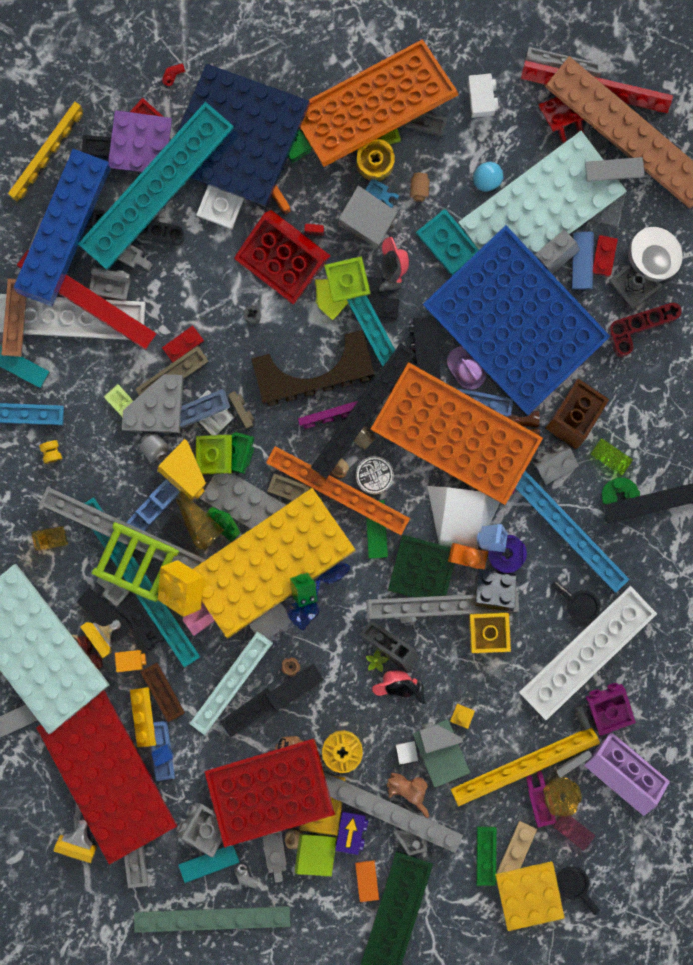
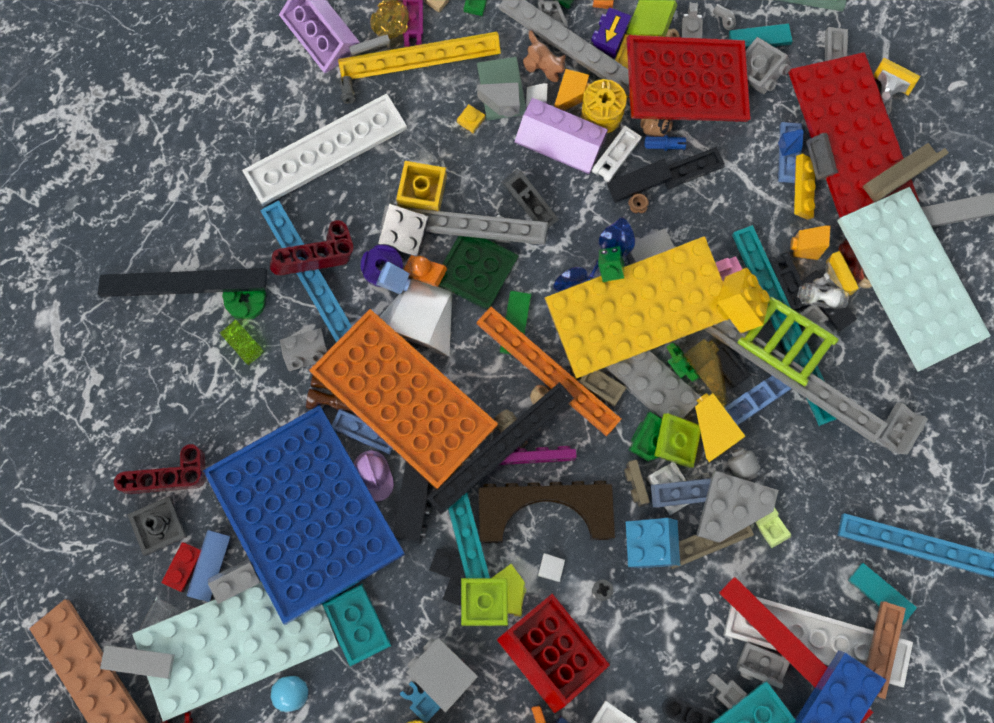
camera: 165 degrees left, 10 degrees down
(23, 509) = (902, 429): none -> light grey bracket
(49, 538) = (878, 391): clear yellow slope -> none
(52, 456) = (861, 481): yellow wheel -> none
(56, 747) = (903, 172): none -> dark tan fence
(101, 612) = (833, 297): none -> clear piece
(133, 745) = (821, 156): none -> flat silver tile
(162, 692) = (779, 207): reddish brown plate -> none
(183, 344) = (688, 576): red plate -> none
(218, 360) = (652, 543): none -> dark azure brick
(231, 683) = (704, 198): light aqua tile -> none
(278, 732) = (664, 143): none -> blue axle
(298, 324) = (551, 567): none -> white slope
(314, 229) = (508, 676): red tile -> none
(320, 711) = (617, 153): none -> white plate
(374, 475) = (504, 380): tile -> none
(375, 715) = (561, 135): none -> lavender slope
(375, 764) = (571, 89): none -> light orange slope
(376, 661) = (547, 189): lime plant -> none
(395, 265) = (424, 610): hair -> none
(401, 684) = (525, 160): hair -> none
(419, 187) = (372, 699): medium nougat brick -> none
(571, 545) = (285, 260): none -> dark red beam
(577, 414) = (265, 394): reddish brown slope -> none
(582, 605) = (318, 198): black piece -> none
(610, 708) = (317, 90): magenta plate -> none
(655, 254) = (123, 553): piece -> none

